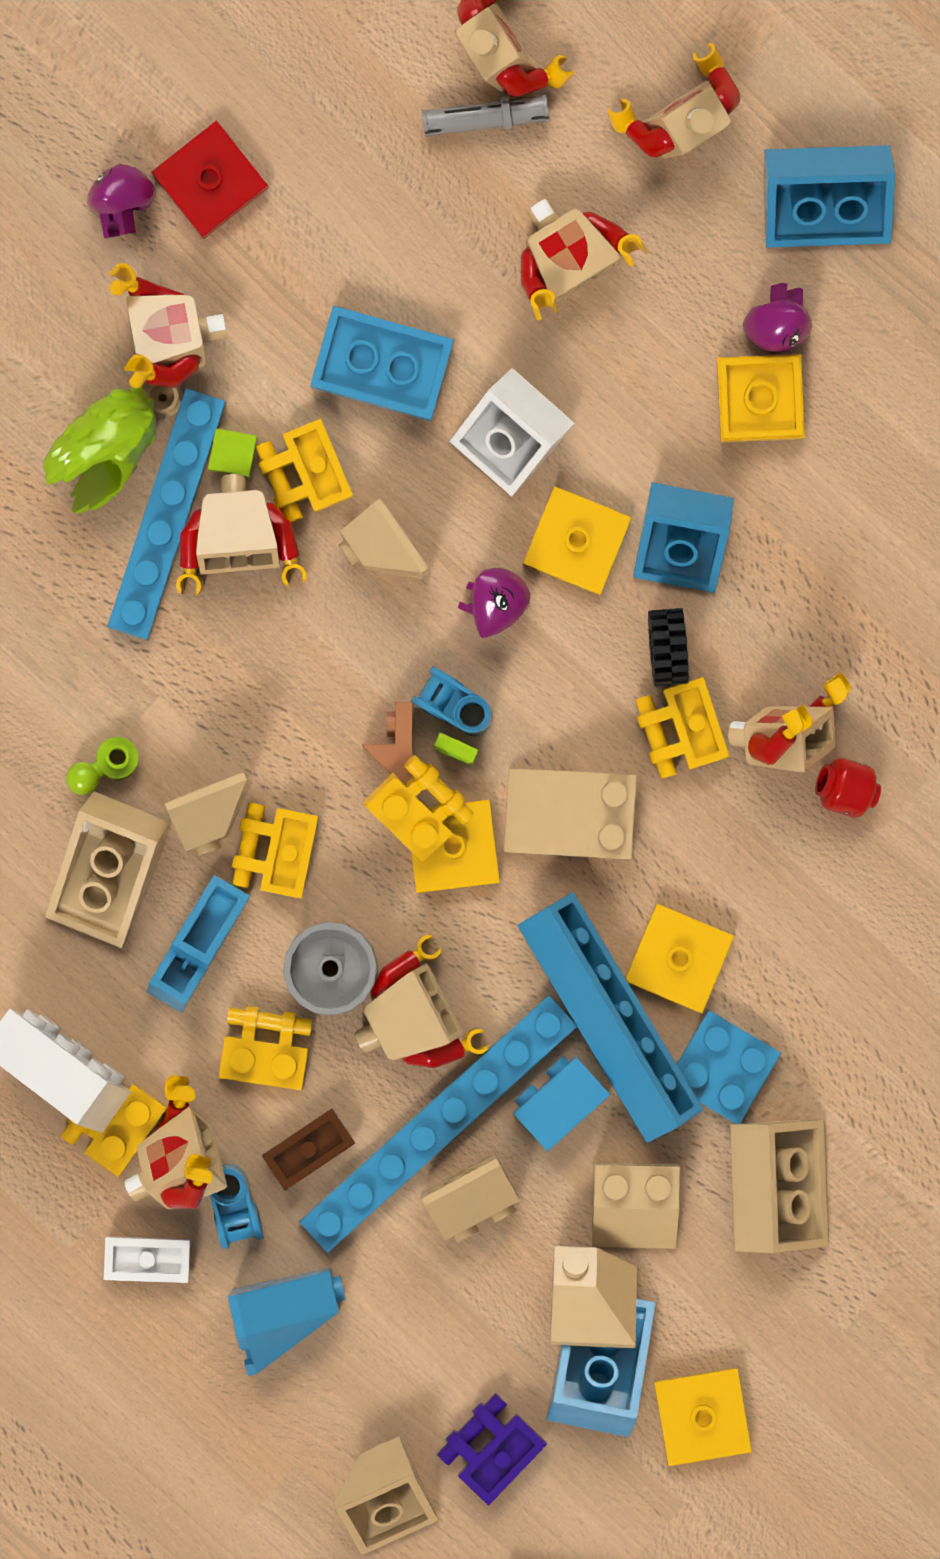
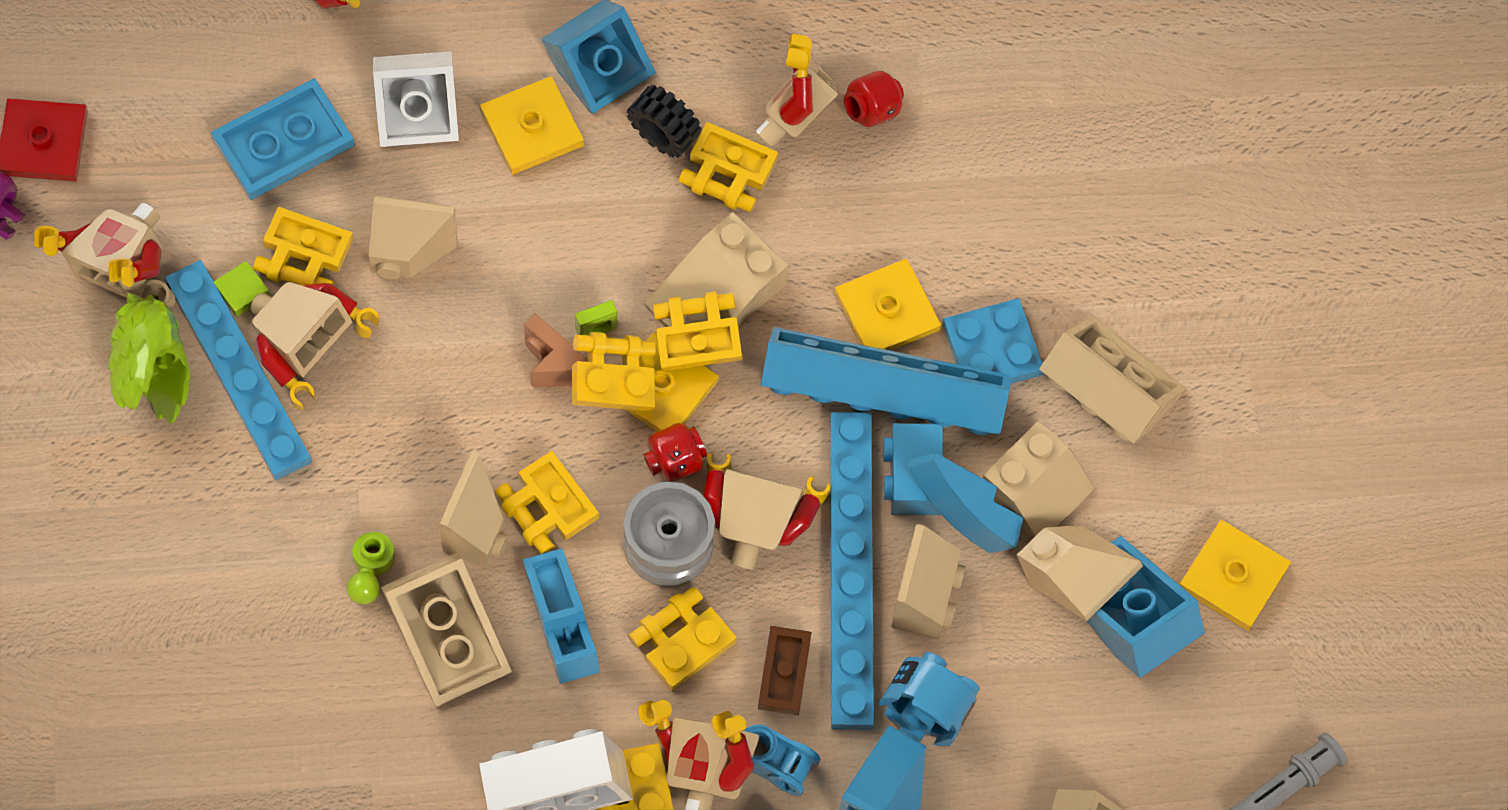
camera: 50 degrees left, 20 degrees down
(379, 1282) = (929, 698): none -> dark azure brick
(402, 910) = (675, 452): none -> red head
(451, 702) = (561, 295): dark azure piece -> none
(497, 600) = (521, 200): magenta piece -> none
(500, 1458) = (1139, 737): dark purple plate -> none
(503, 848) = (698, 342): none -> yellow plate
(560, 1175) = (967, 502): none -> dark azure slope

